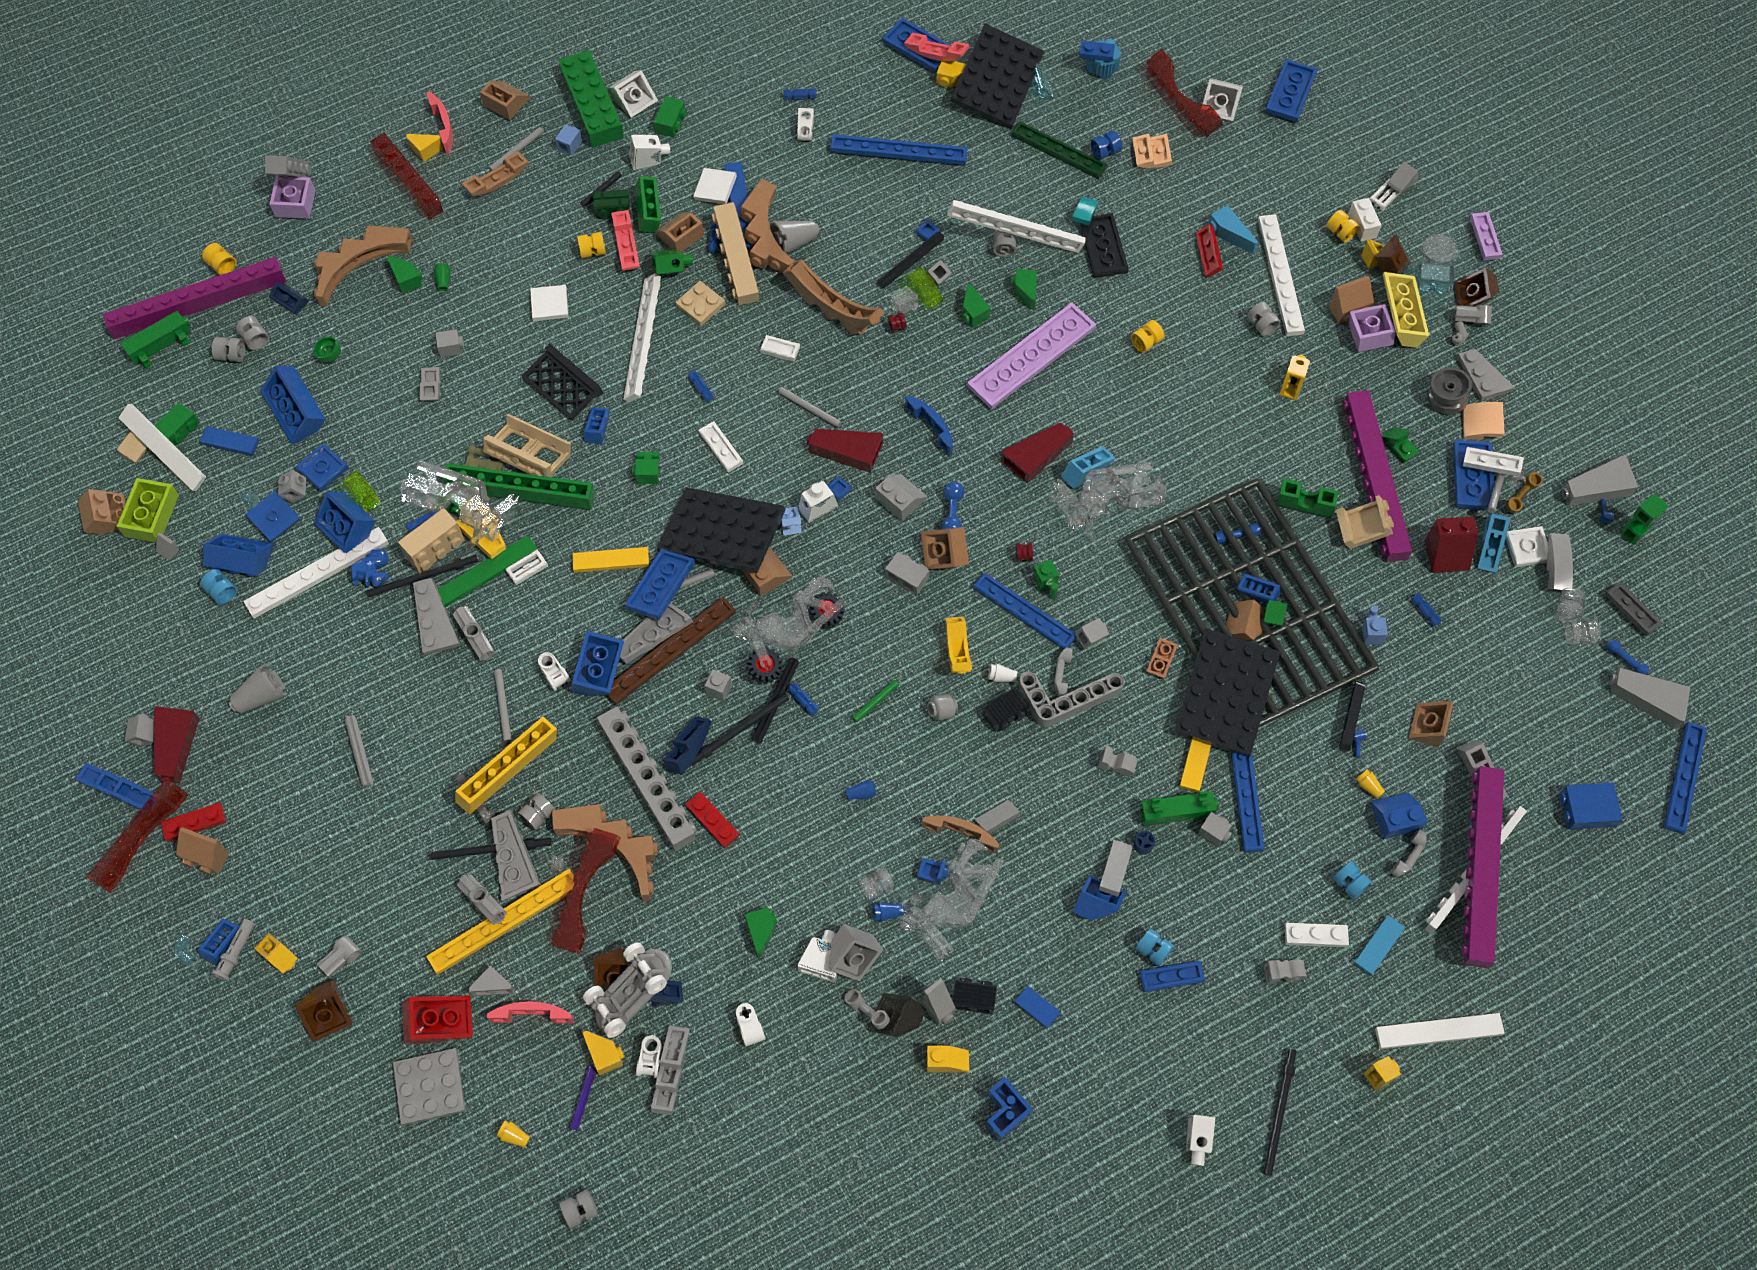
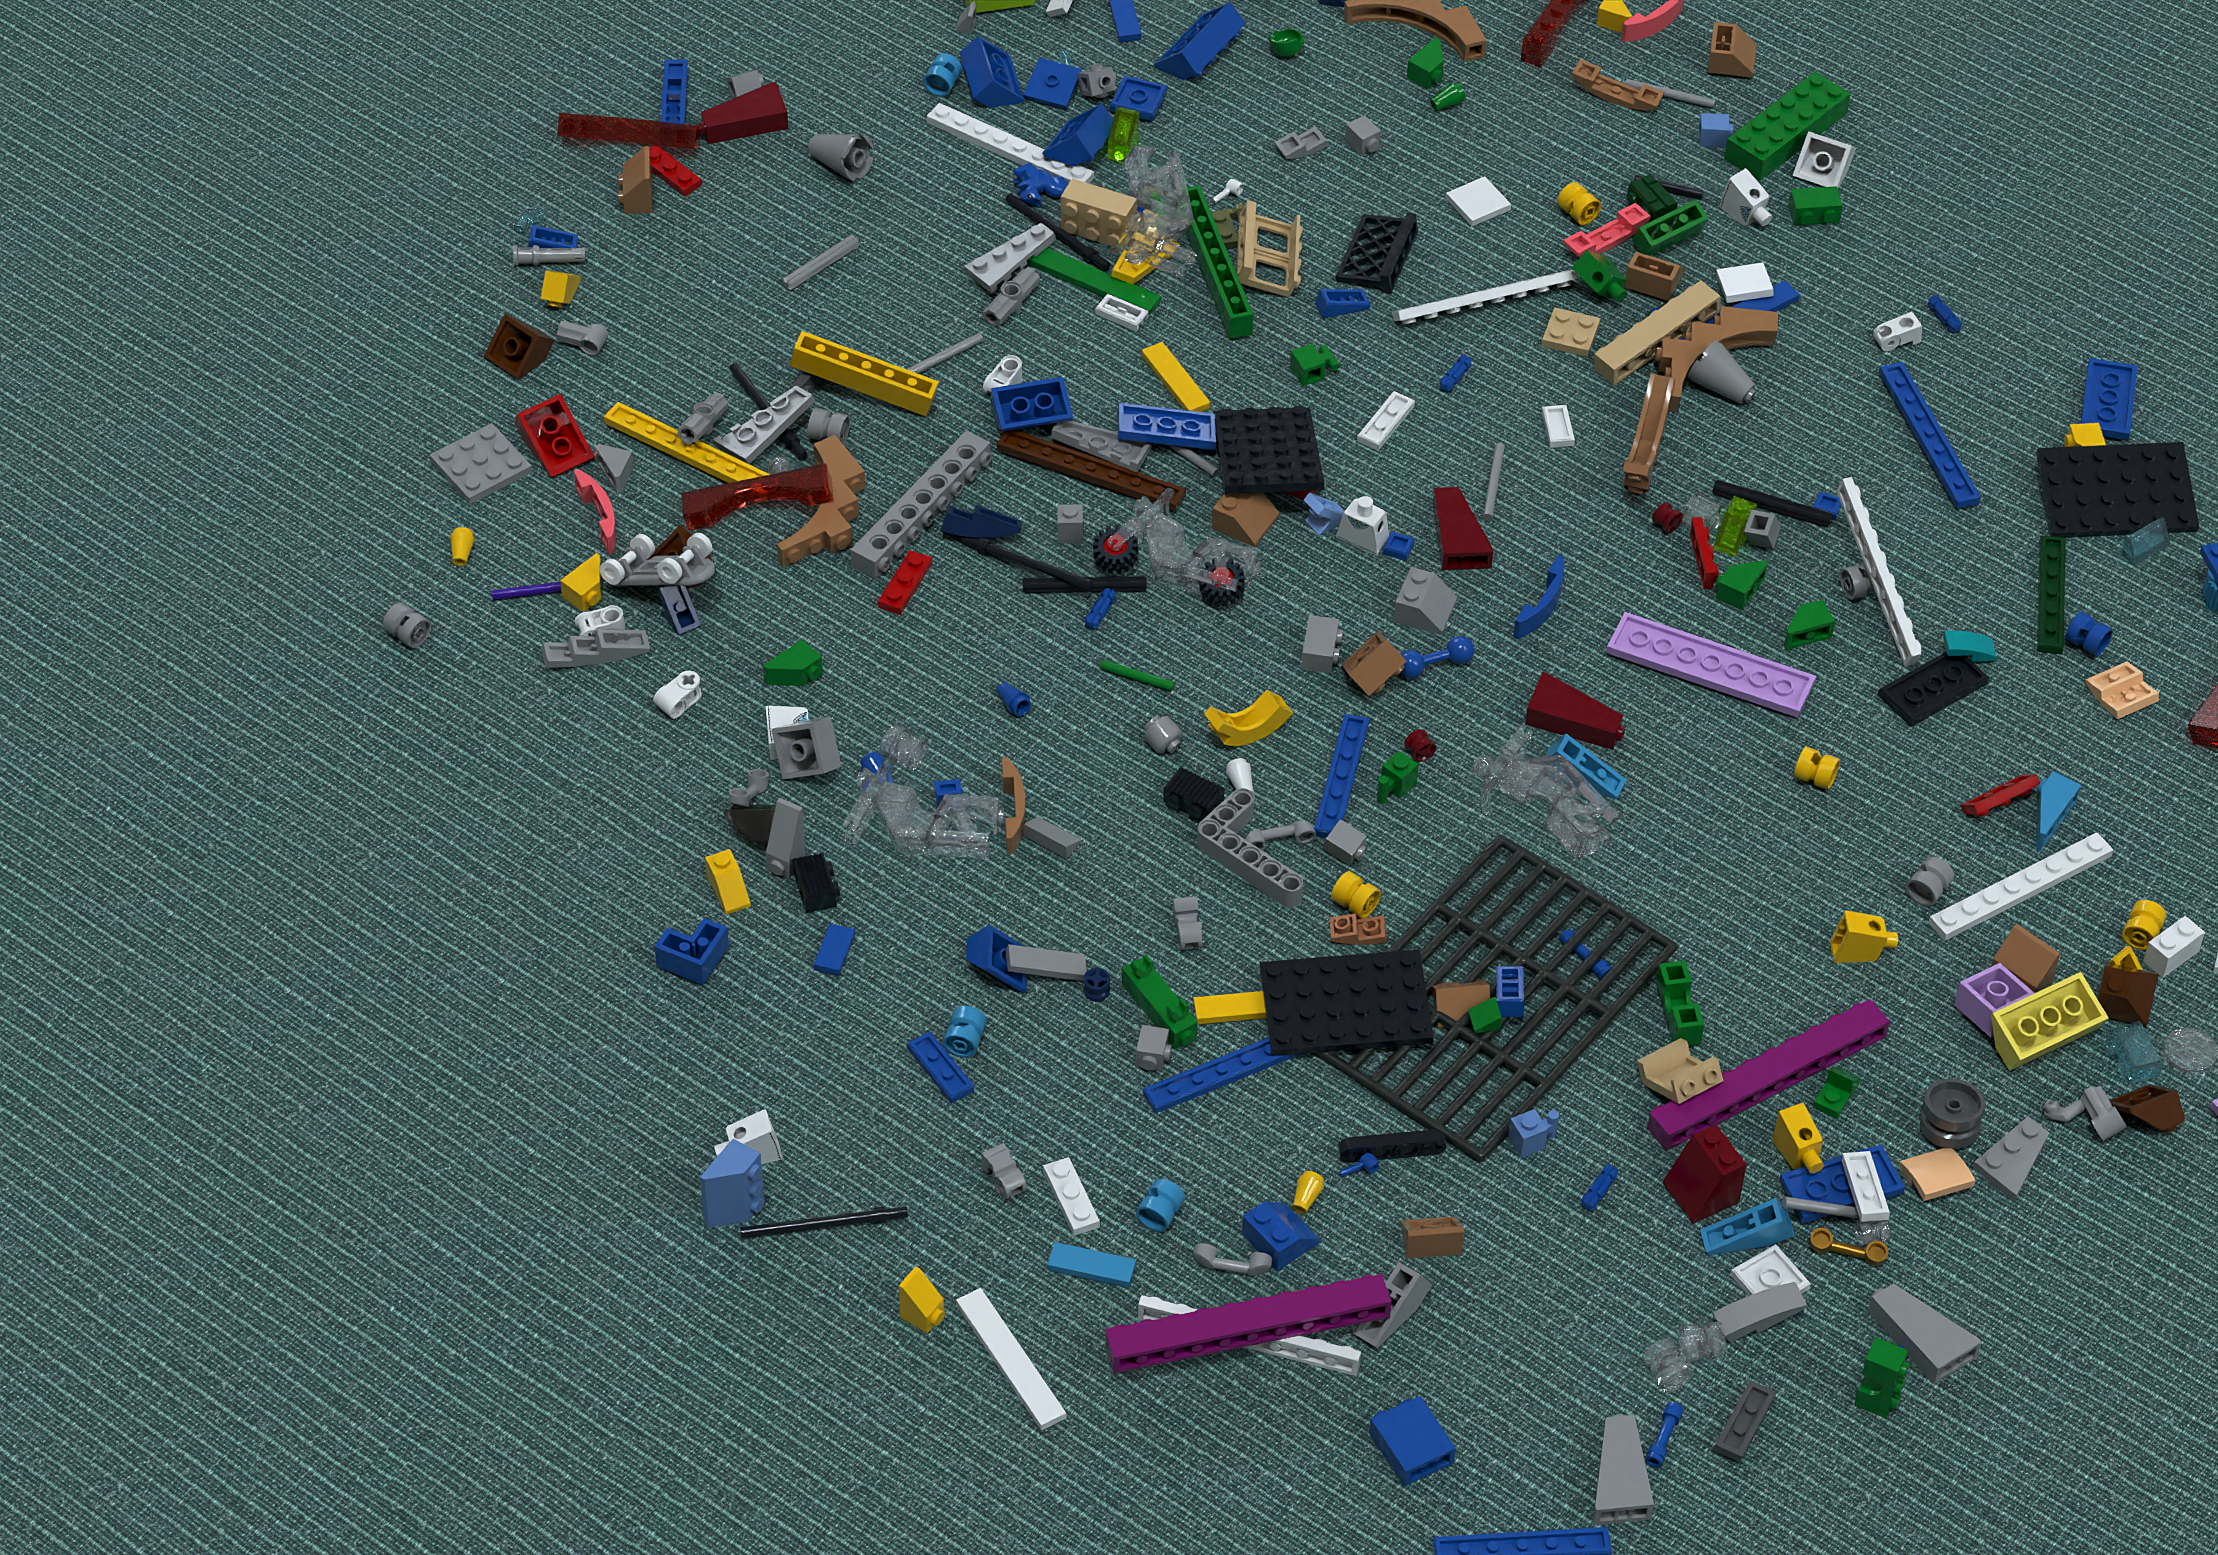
camera: 65 degrees right, 15 degrees down
(448, 444) = (1233, 187): none -> white hand
(920, 45) = (2104, 406): coral slope -> none
(937, 316) = (1703, 553): none -> red plate
(1139, 645) = (1353, 893): none -> yellow wheel
(1247, 1164) = (732, 1186): none -> medium blue slope
(1440, 481) = (1798, 1138): none -> yellow torso

